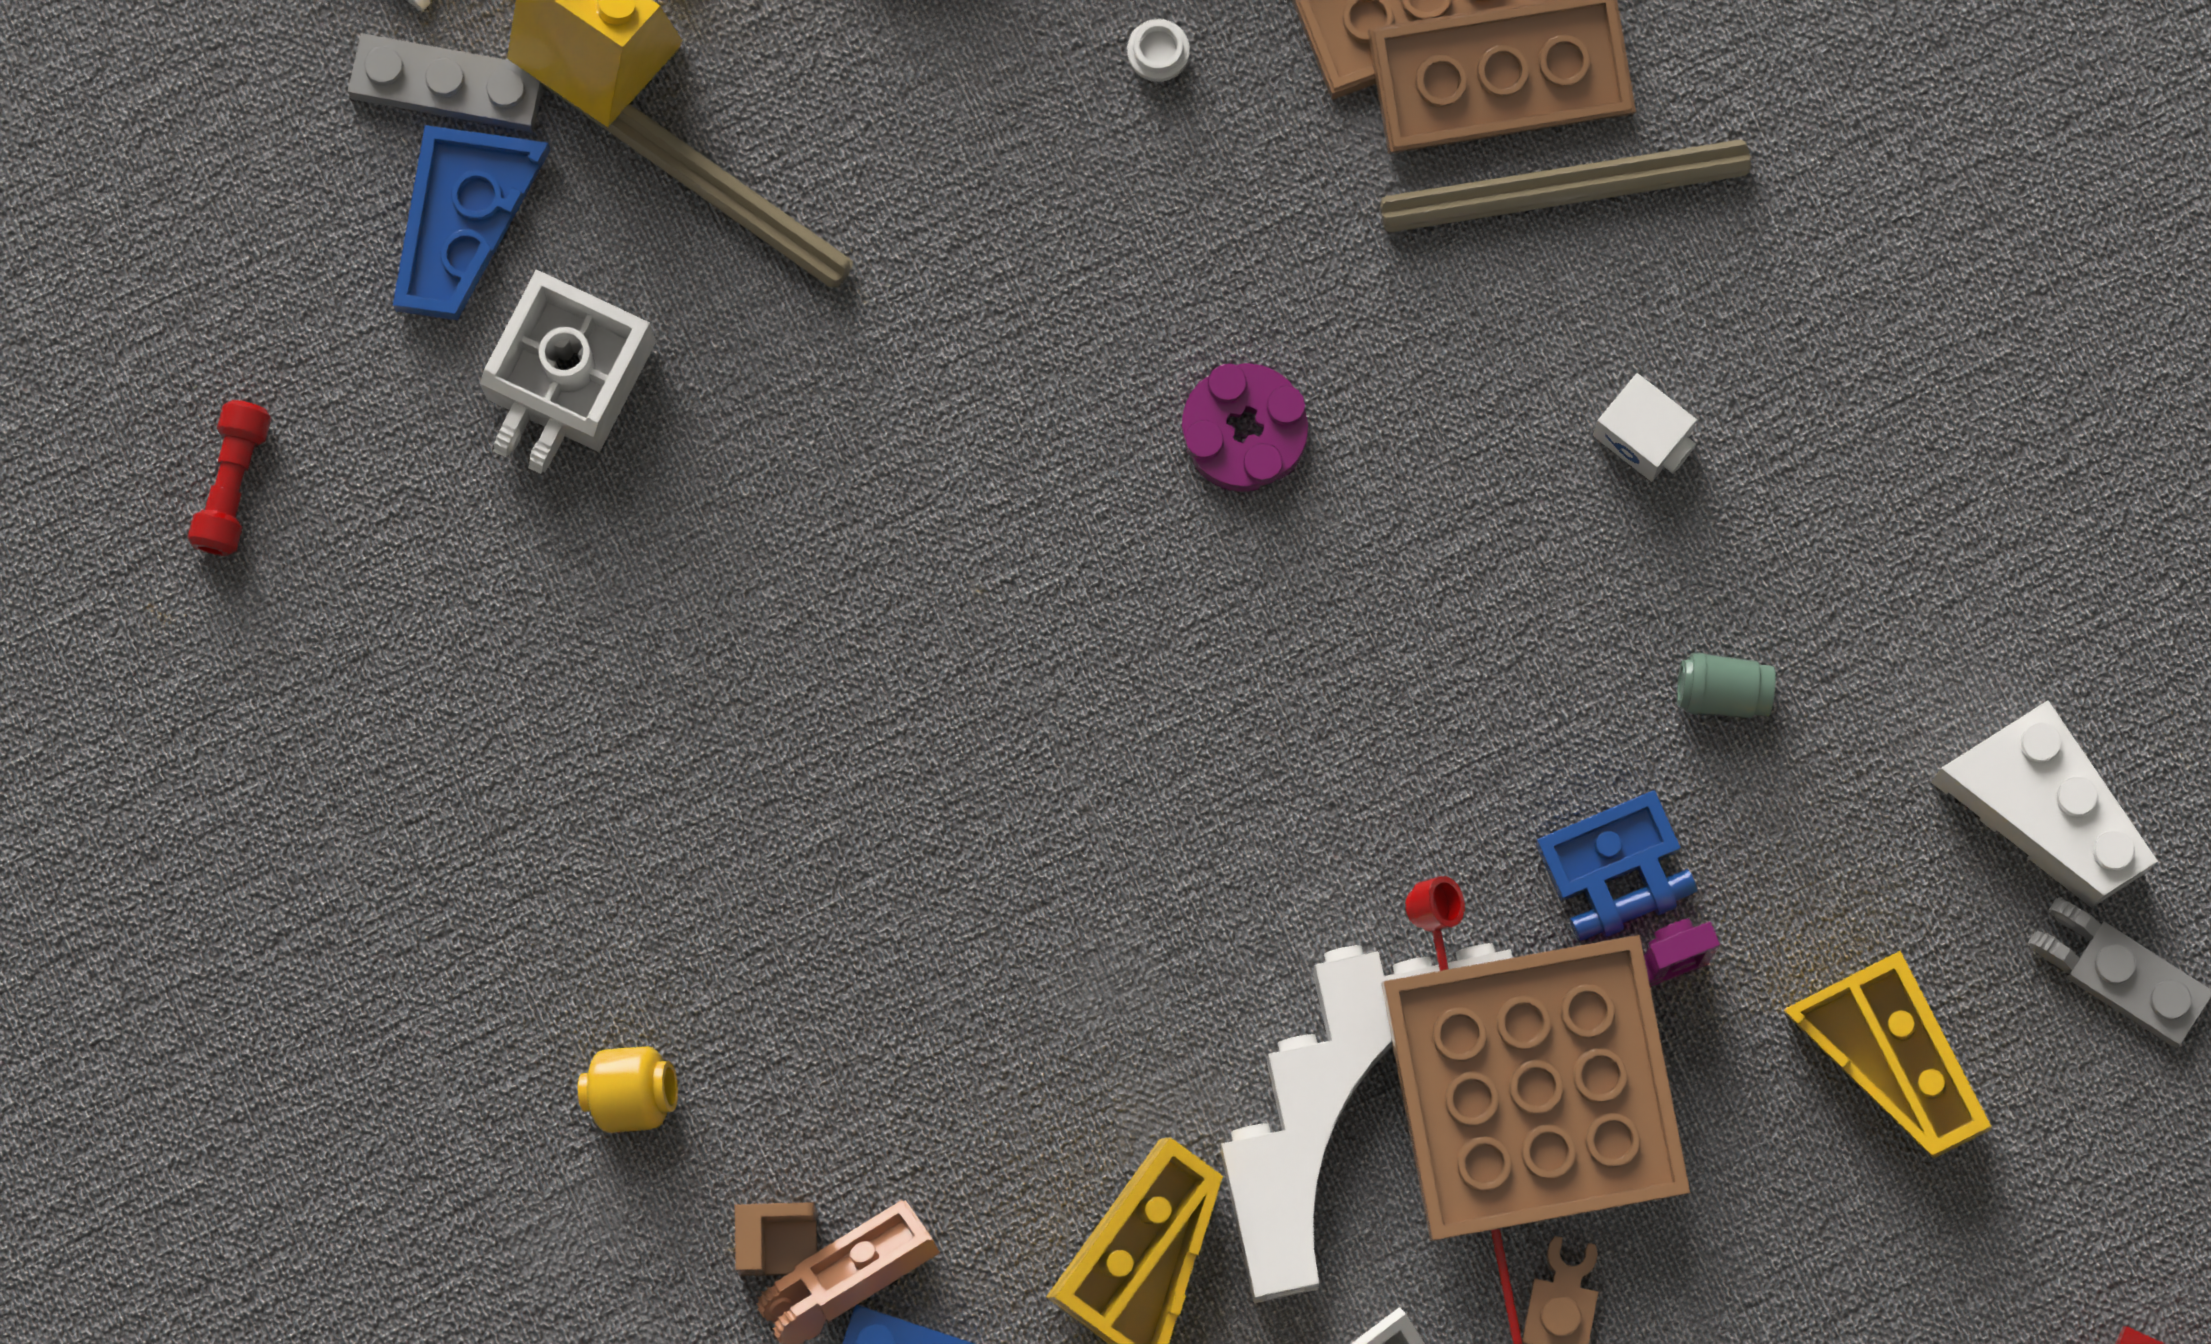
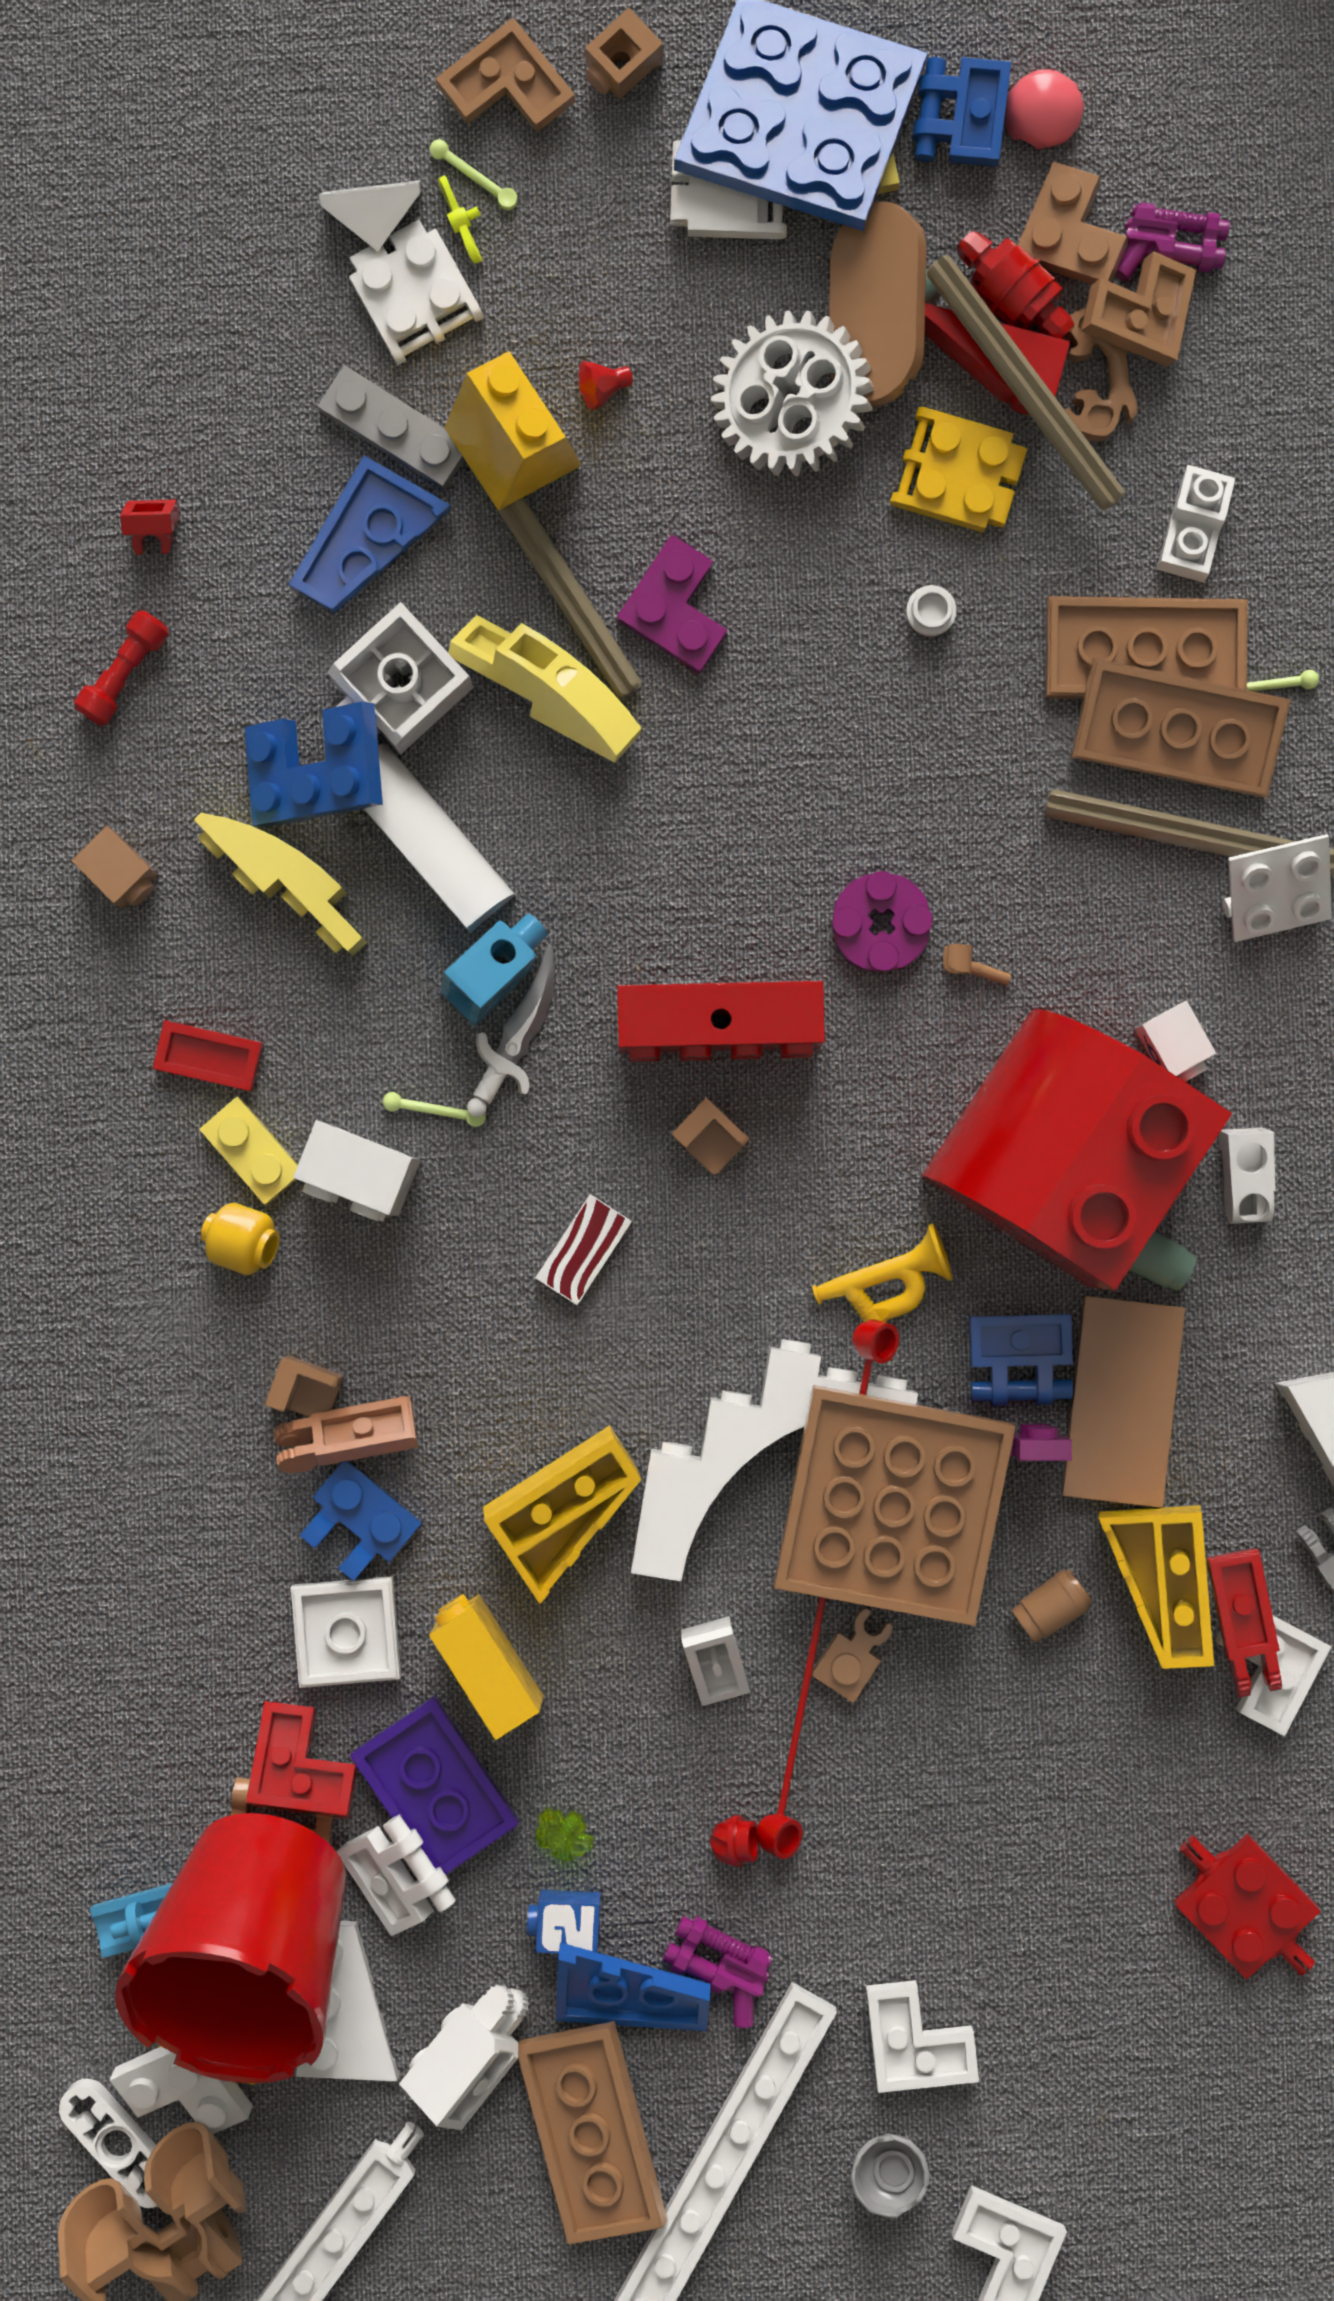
camera: 20 degrees right, 10 degrees up
(198, 293) = (150, 518): none -> red tile
(313, 711) = (116, 869): none -> medium nougat brick
(485, 543) = (293, 793): none -> blue plate
(495, 632) = (270, 864): none -> light yellow slope
(505, 891) = (208, 1056): none -> red tile
(601, 982) = (251, 1150): none -> light yellow plate
(665, 535) = (436, 845): none -> white brick
(738, 948) = (356, 1169): none -> white brick
(762, 300) = (558, 685): none -> light yellow slope
(806, 653) = (479, 982): none -> dark azure torso
(843, 171) = (661, 610): none -> magenta plate
(853, 840) = (393, 1101): none -> yellowish green hinge
(866, 726) = (516, 1037): none -> piece
(1045, 944) = (583, 1249): none -> tile
(1100, 604) = (759, 1017): none -> red brick
(1143, 750) = (710, 1136): none -> medium nougat panel
(1354, 436) = (958, 960): none -> medium nougat hand
(1439, 812) = (926, 1257): none -> yellow piece
(1574, 586) = (1076, 1147): none -> red brick
(1691, 204) = (1279, 888): none -> white hinge
(1759, 871) = (1123, 1401): none -> medium nougat tile
(1775, 1144) = (1052, 1605): none -> medium nougat piece
(1795, 548) = (1248, 1174): none -> white leg
(2006, 1060) = (1245, 1616): none -> red hinge
(2079, 1097) = (1299, 1664): none -> white plate

